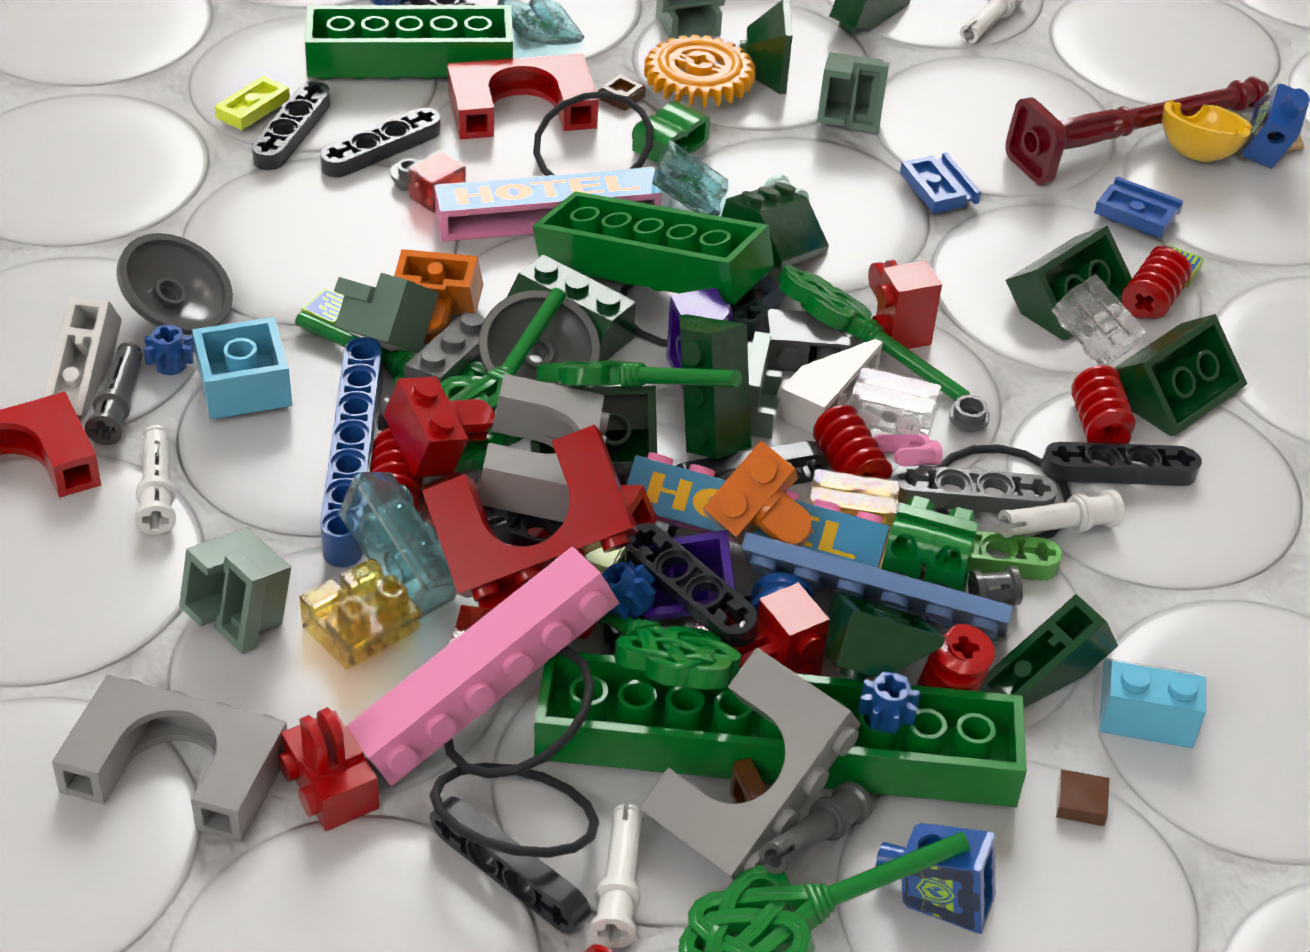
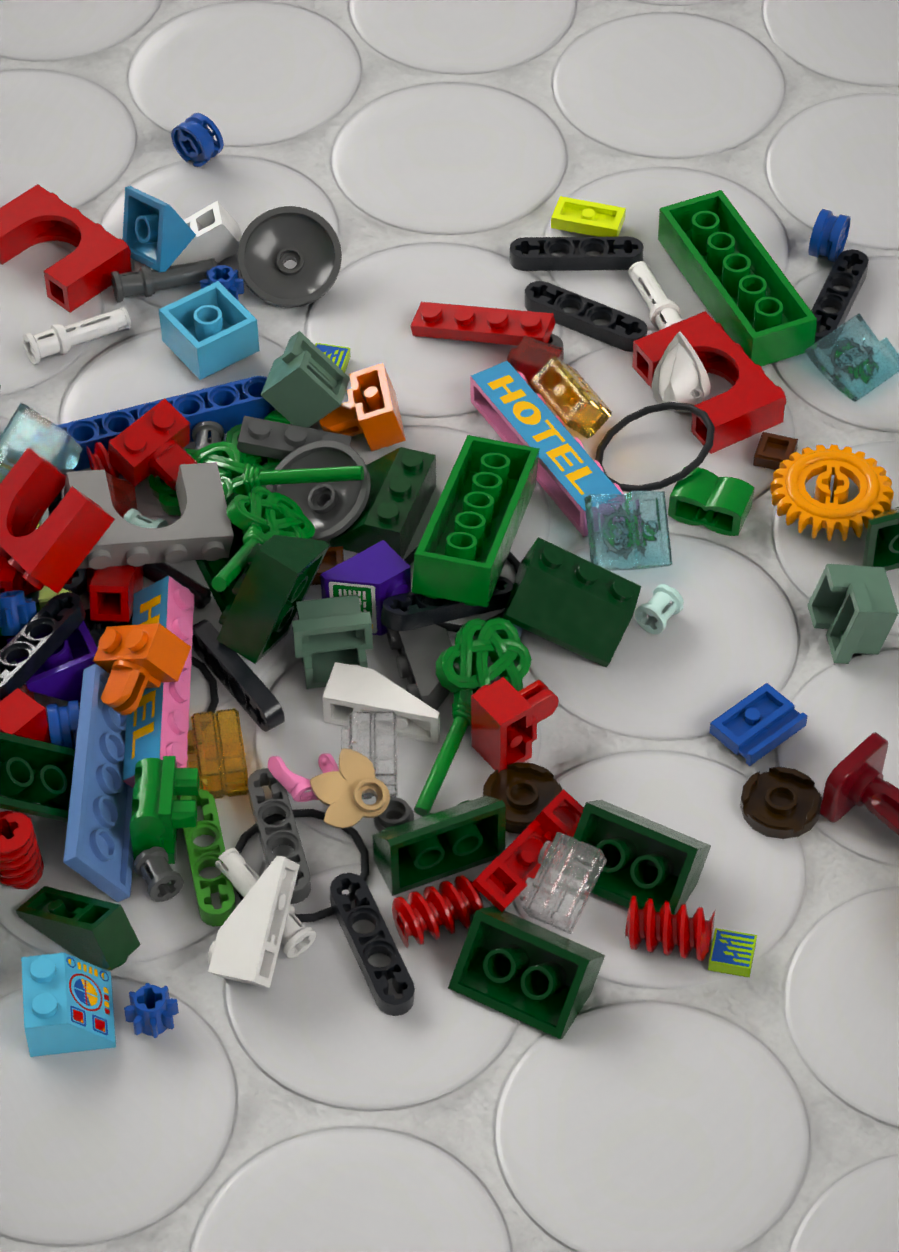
camera: 75 degrees right, 5 degrees up
(61, 359) = (153, 230): none -> dark azure slope
(356, 197) = (481, 324): none -> red plate
(412, 96) = (662, 310): none -> white pin
(502, 161) = (571, 397): none -> clear yellow brick
(518, 101) = (680, 375): none -> white piece
(850, 444) = (287, 731): red piece -> none
(953, 417) = (344, 790): none -> tan plate
(969, 335) = (525, 792): none -> dark brown tile
(1021, 321) = (507, 873): none -> red slope
(1023, 200) = (780, 803): none -> dark brown tile
(1024, 380) = (440, 844): none -> dark green slope
(1114, 518) = (253, 932): none -> white slope
(1138, 207) = (813, 899): blue plate -> none
(1172, 629) = (151, 1010): none -> blue gear

